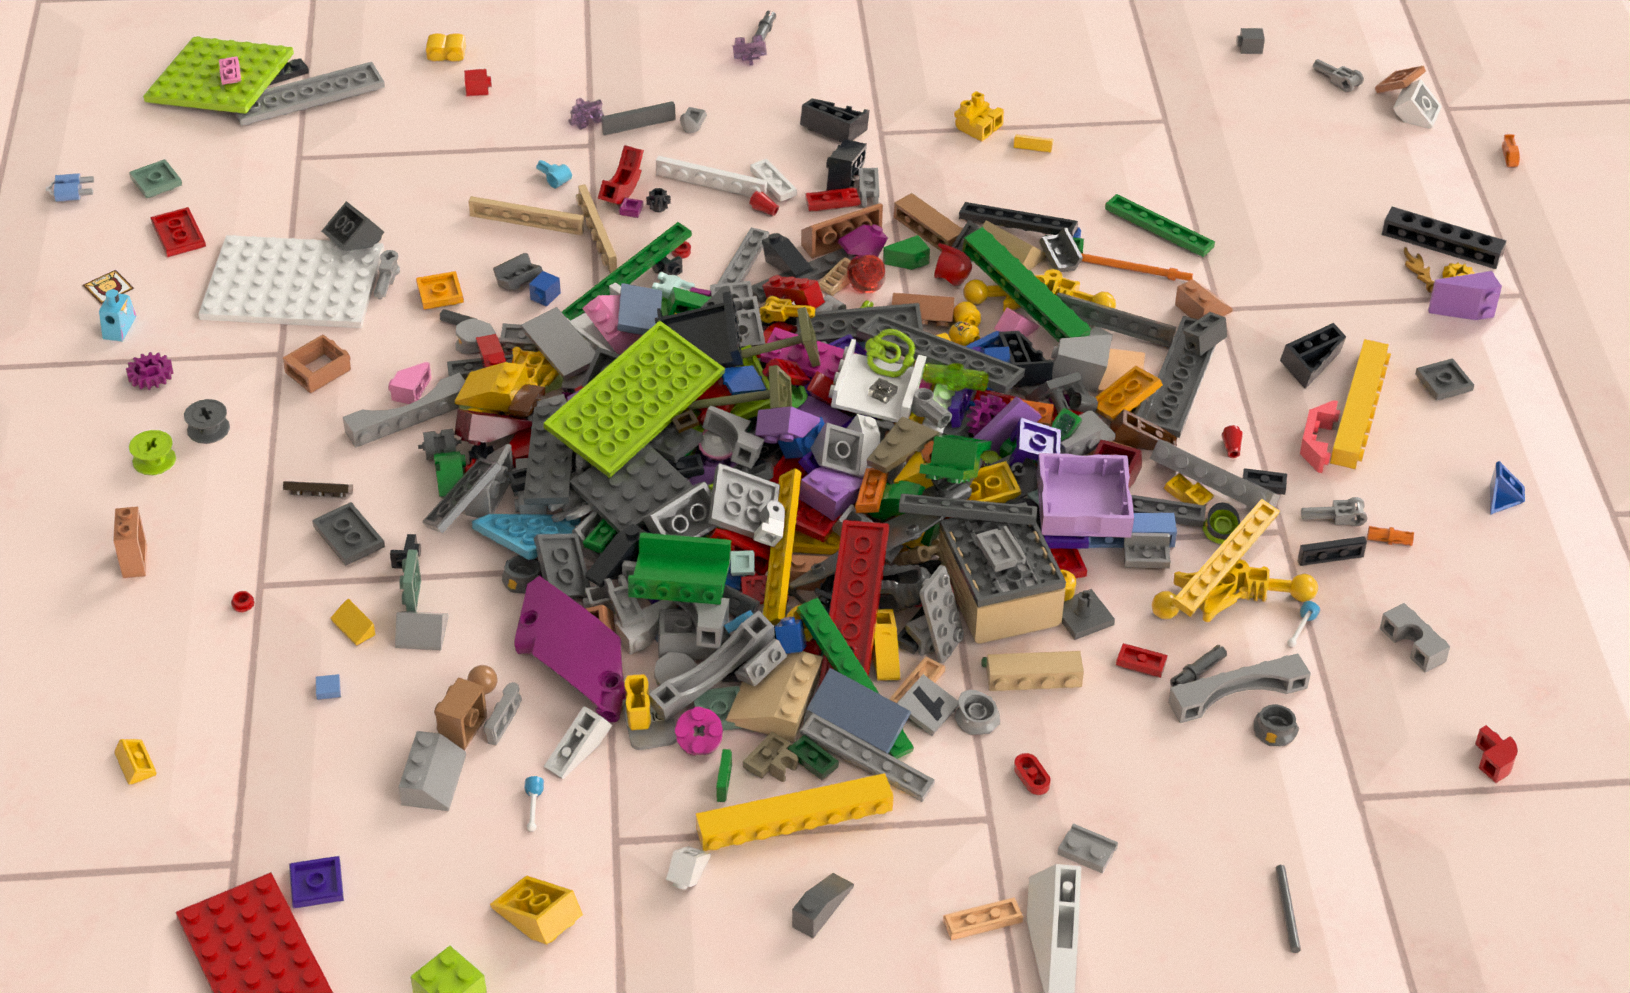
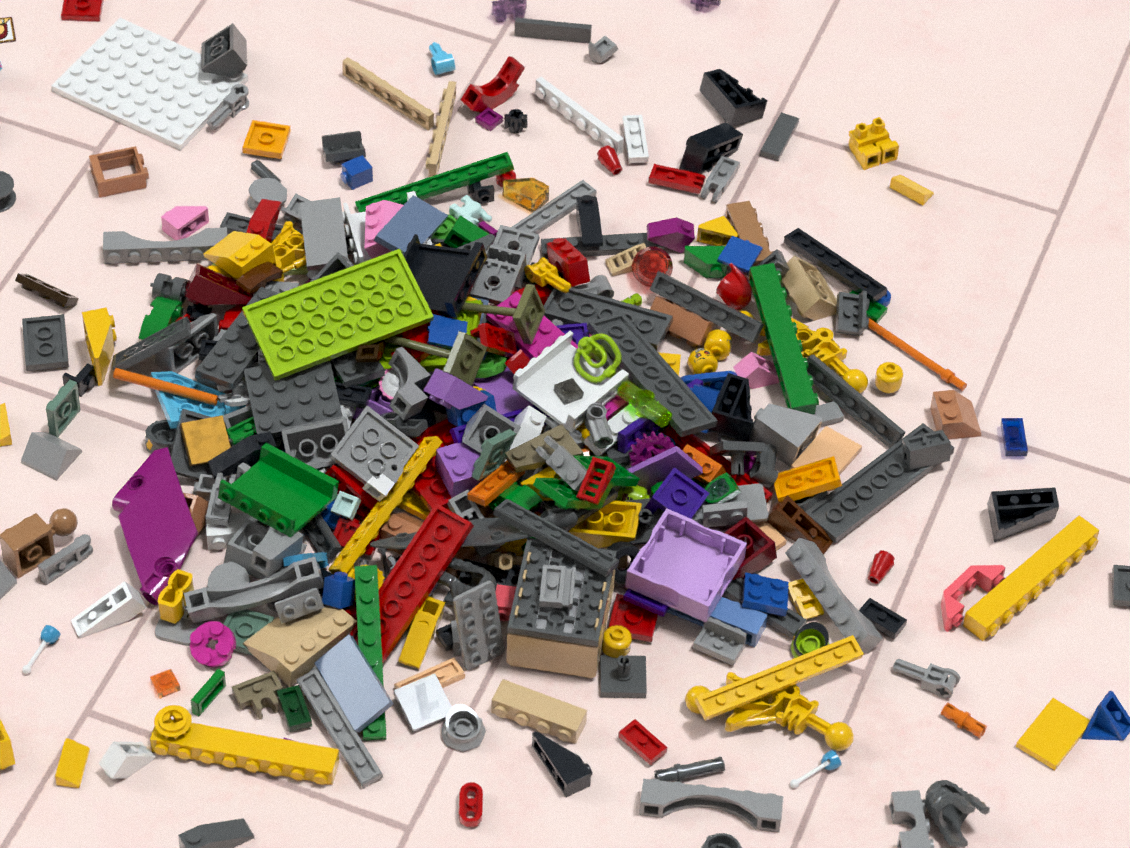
camera: 25 degrees right, 5 degrees up
(402, 509) = (99, 340): none -> yellow slope
(498, 526) = (165, 386): none -> orange piece
(571, 556) = (204, 439): none -> tile
(636, 893) = (71, 764): none -> yellow slope
(674, 785) = (165, 683): none -> clear orange plate
(710, 253) = (526, 192): none -> clear yellow slope
(716, 802) = (163, 718): none -> yellow gear
(824, 236) = (637, 214): nougat slope -> none
(859, 457) = (493, 454): none -> sand green plate
(894, 138) = (779, 136): none -> dark grey tile
(901, 228) = (716, 232): none -> yellow slope
(932, 446) = (563, 463): none -> light grey hinge
(934, 234) = (740, 253): none -> blue piece
(941, 286) = (707, 307): none -> dark grey plate
(974, 431) = (596, 464): none -> red slope
(1087, 706) = (563, 765): none -> black slope
(1129, 290) = (889, 377): none -> yellow head
(1158, 497) = (765, 594): none -> blue plate
(1160, 225) = (971, 321): green plate -> none
(1262, 300) = (1014, 437): none -> clear blue plate
(1332, 551) = (894, 712): black tile -> none
(1436, 604) = (949, 809): none -> dark grey hair
(1468, 518) = (1053, 733): none -> yellow tile

